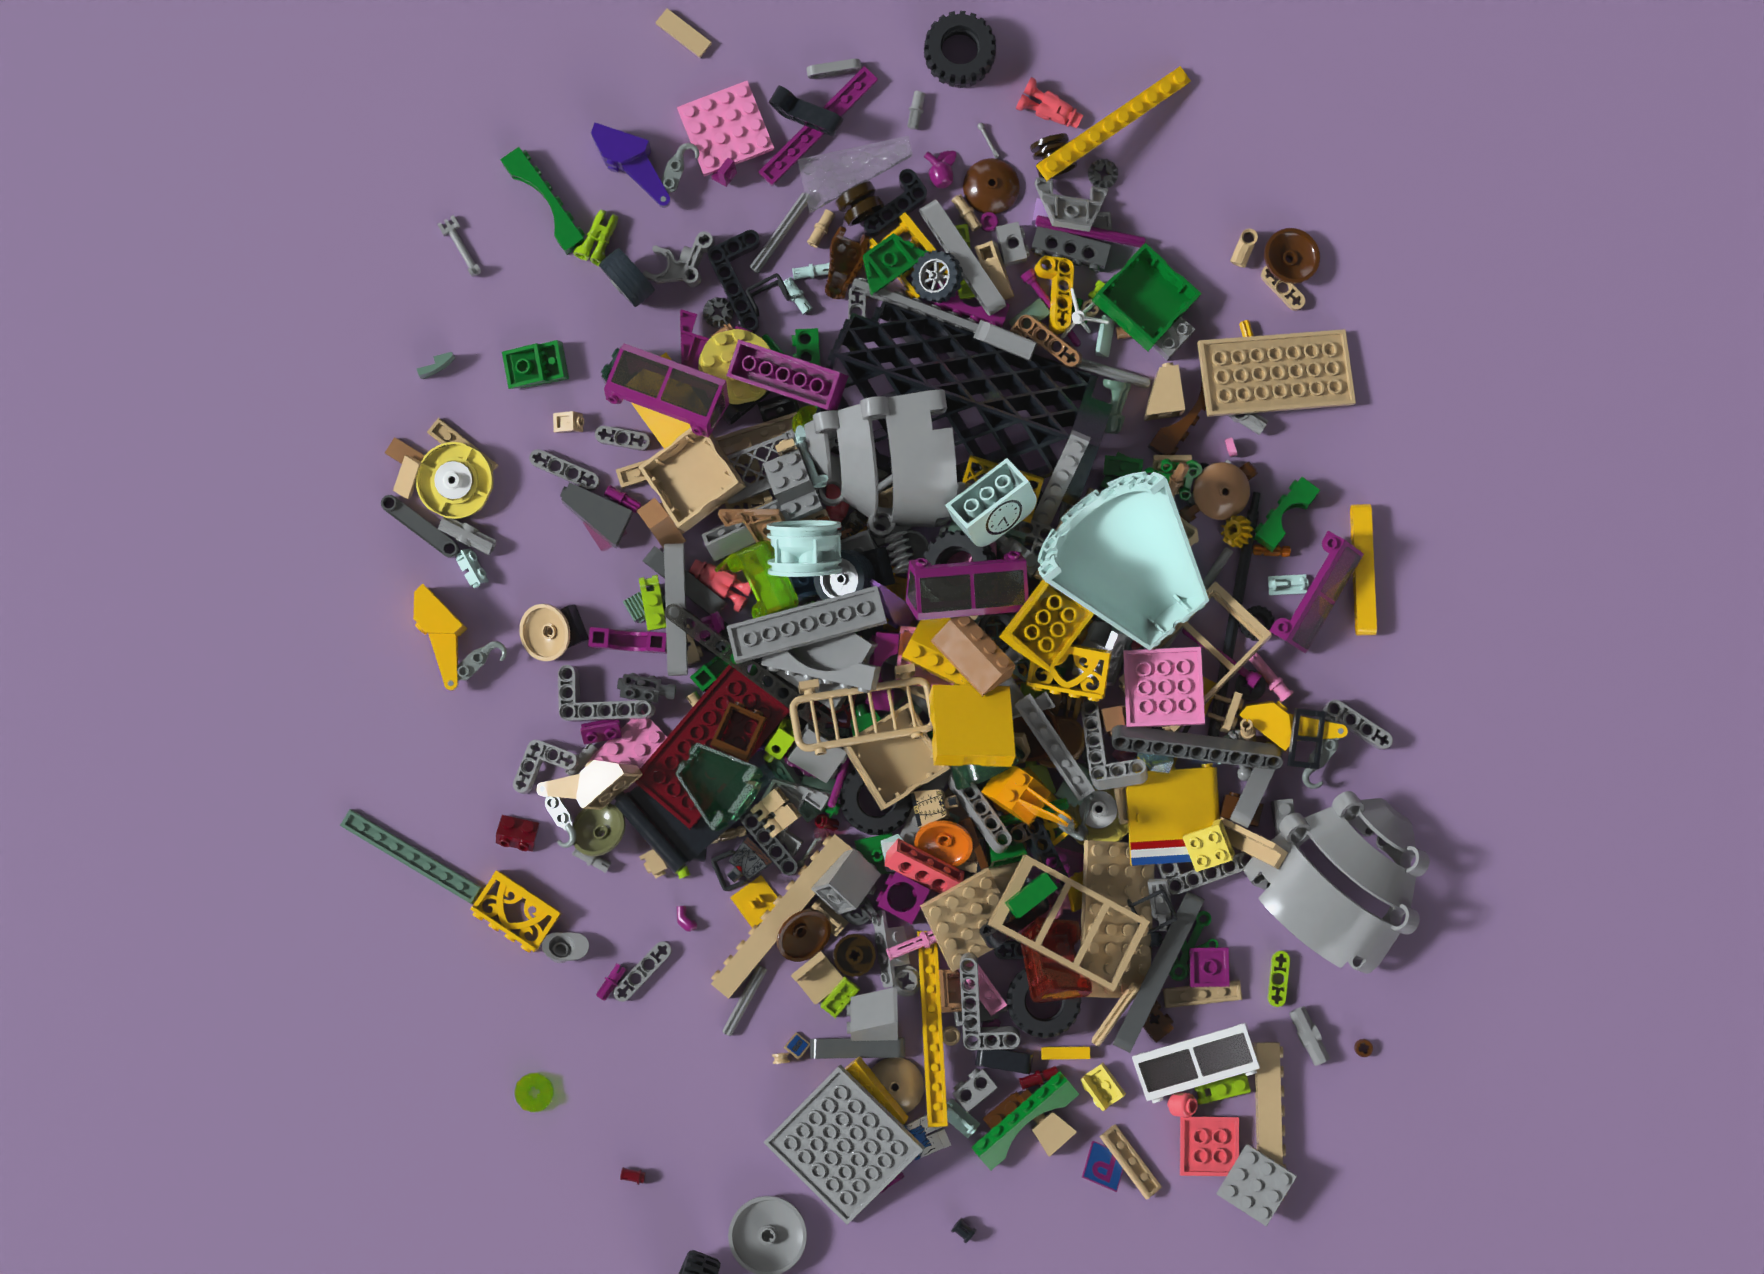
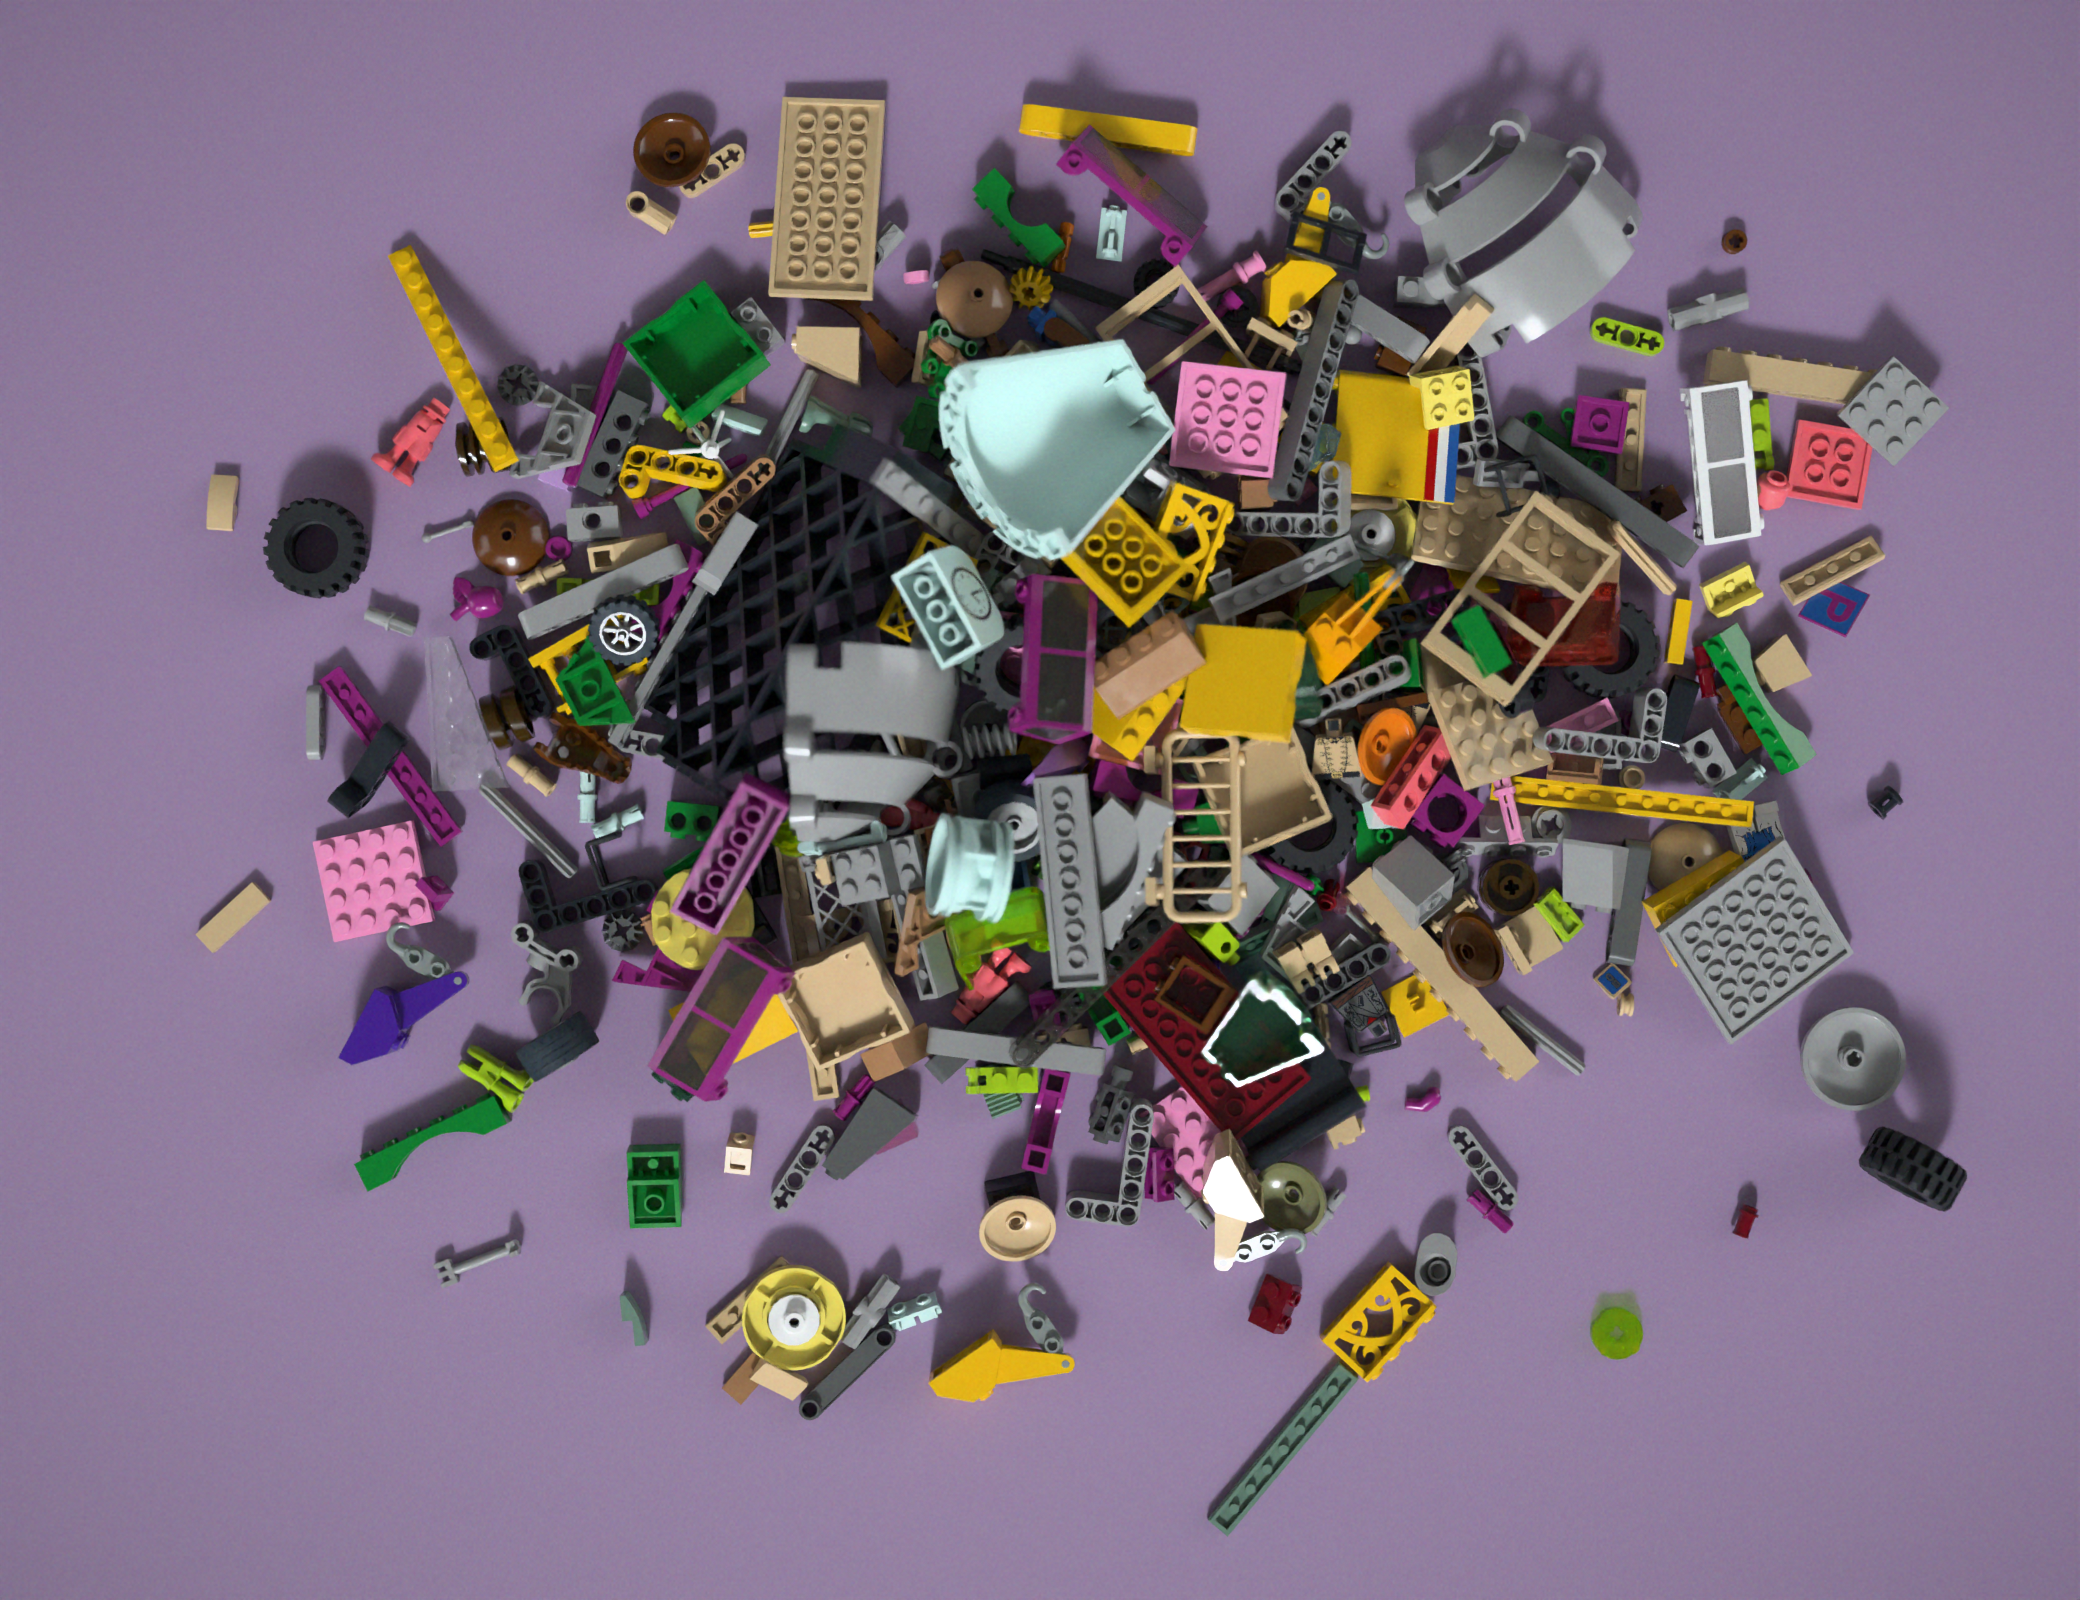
camera: 80 degrees left, 5 degrees up
(542, 755) = (1179, 1255): light grey beam -> none
(637, 435) = (782, 1080): light grey beam -> none
(1209, 550) = (1054, 330): none -> hips

